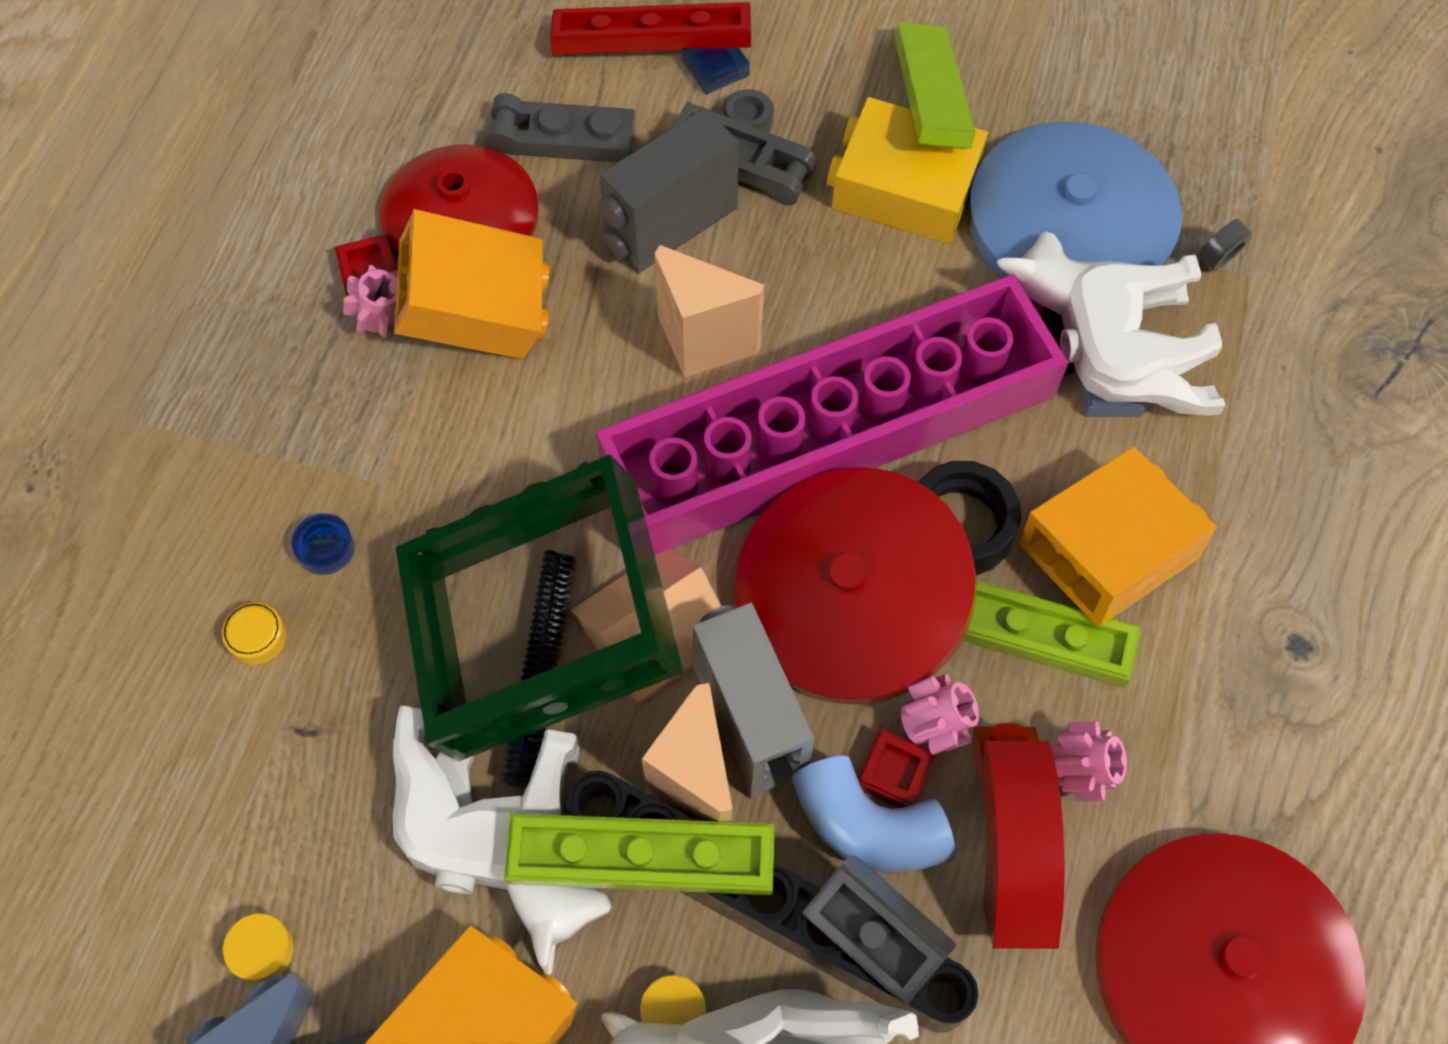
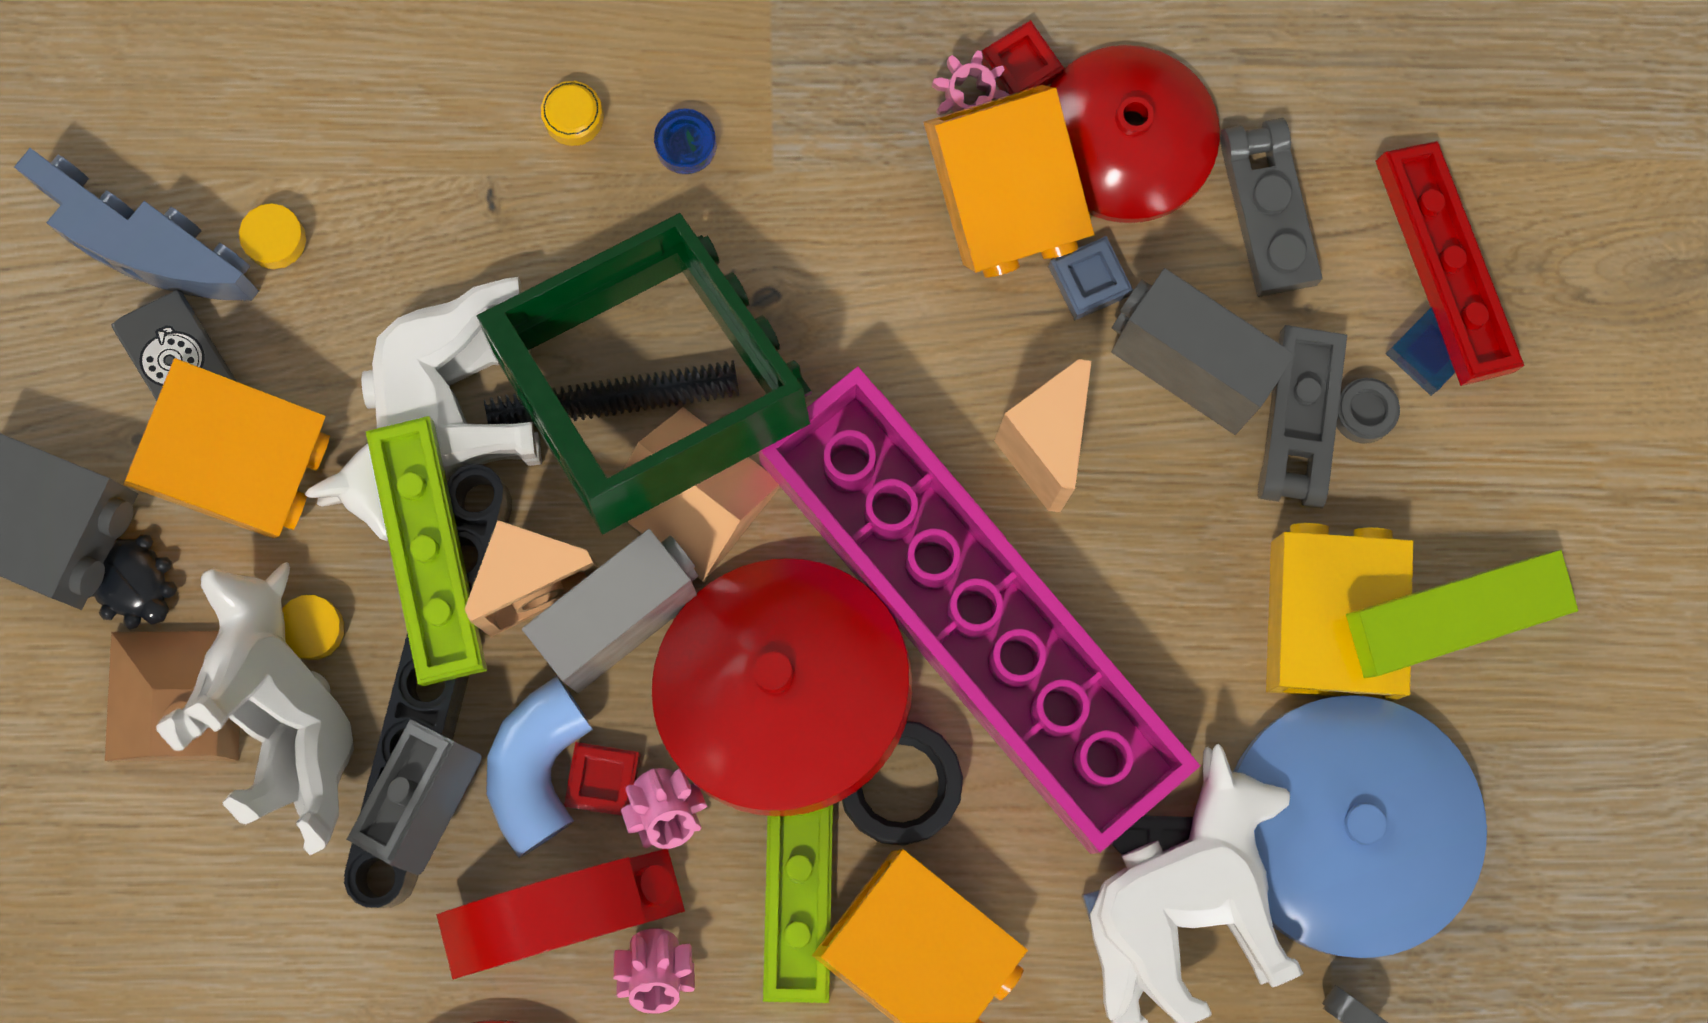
camera: 70 degrees right, 15 degrees up
(572, 267) = (1090, 278): none -> sand blue tile

